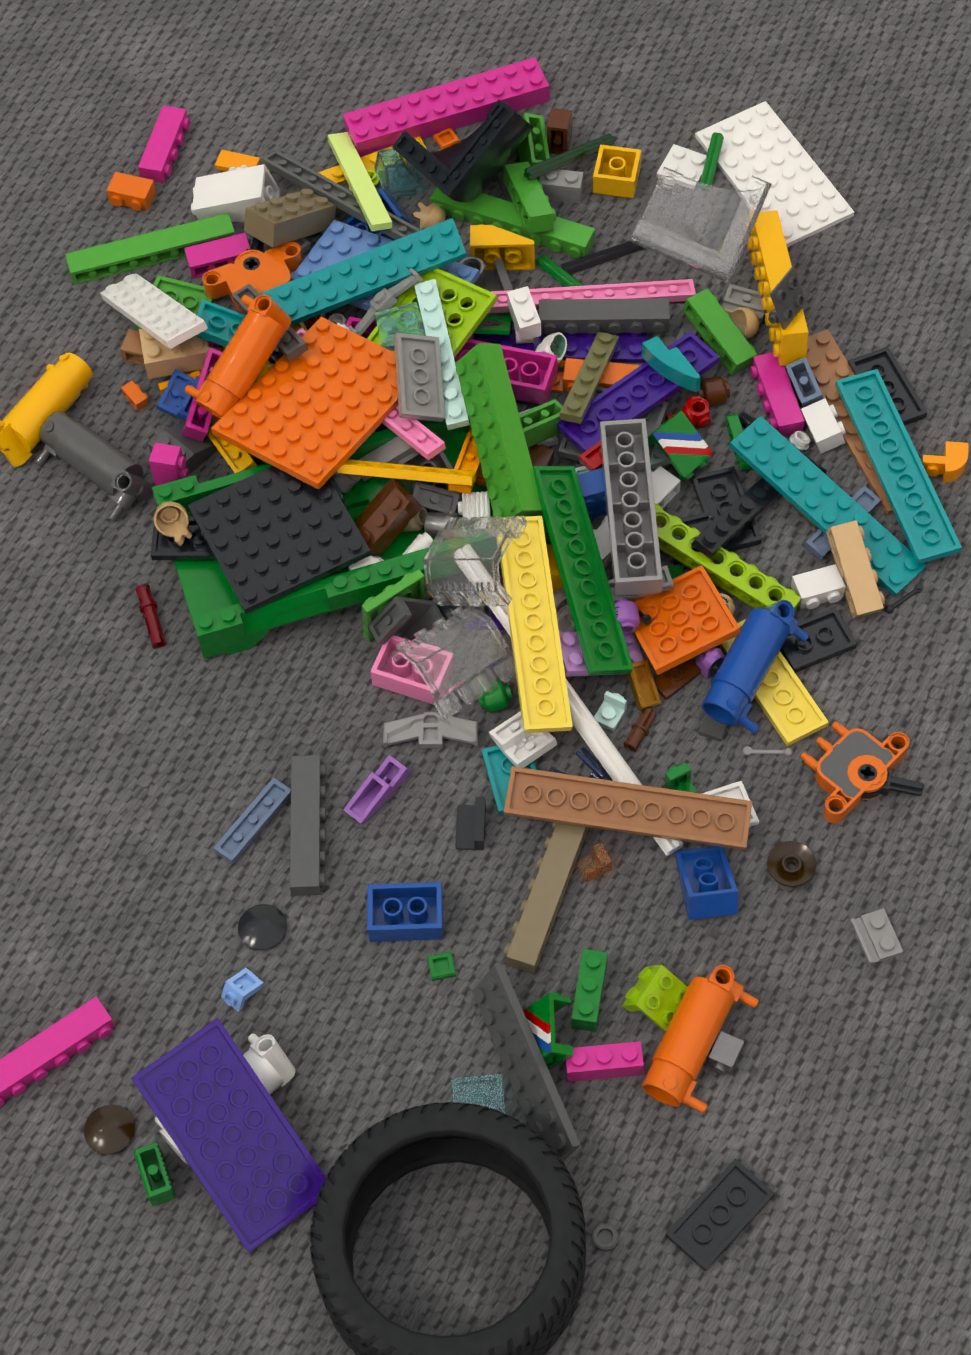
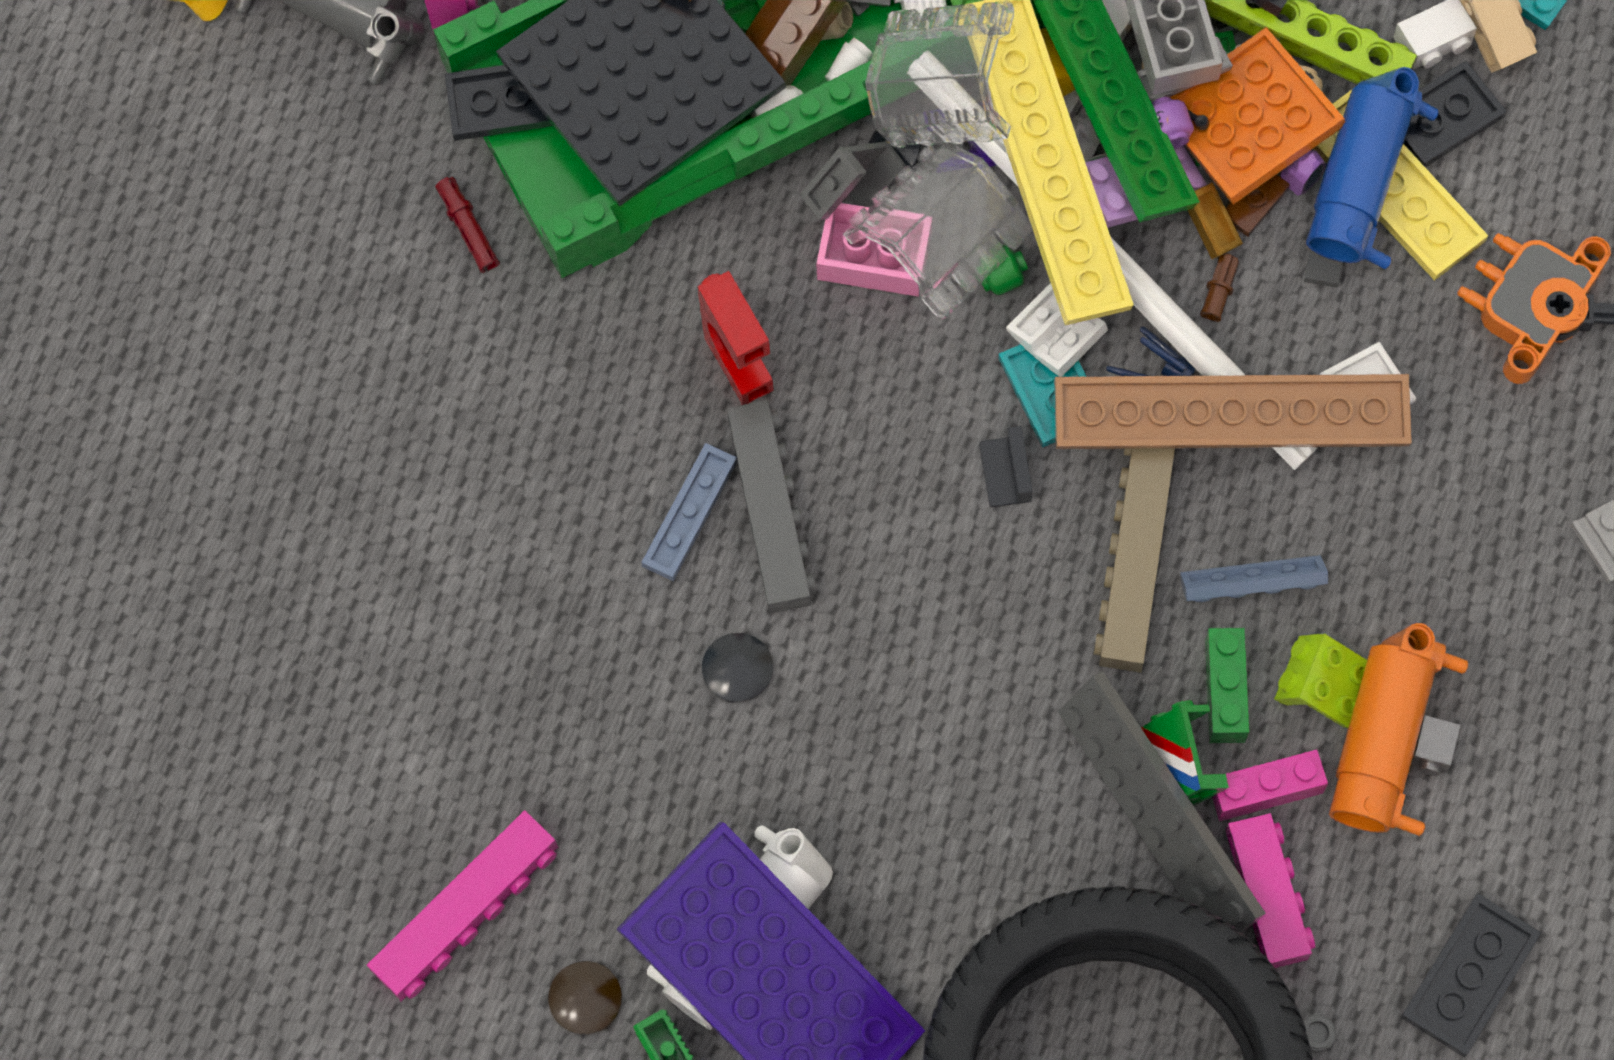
camera: 10 degrees left, 10 degrees up
(172, 521) = (477, 78): tan piece -> none
(240, 988) = (728, 763): light blue bracket -> none
(303, 708) = (735, 336): none -> red arch
(377, 789) = (859, 437): medium lavender slope -> none
(405, 911) = (942, 613): blue brick -> none
(410, 586) = (851, 131): bright green plate -> none
(430, 730) = (918, 336): light grey plate -> none
(436, 521) = (870, 20): flat silver piece -> none
(441, 966) = (1007, 683): green tile -> none
(479, 1090) = (1101, 861): clear light blue plate -> none
(590, 1127) = (1268, 874): none -> dark pink brick
(595, 864) = (1195, 498): clear orange panel -> none
(611, 711) = (1173, 265): light aqua bracket -> none
(623, 922) = (1254, 578): none -> sand blue plate
(679, 778) = (1292, 356): green bracket -> none
(706, 882) = (1360, 501): blue slope -> none
(748, 751) = (1380, 295): light grey hinge -> none
(791, 853) = (1479, 439): dark brown dish -> none
(918, 588) = (1576, 13): black hinge -> none

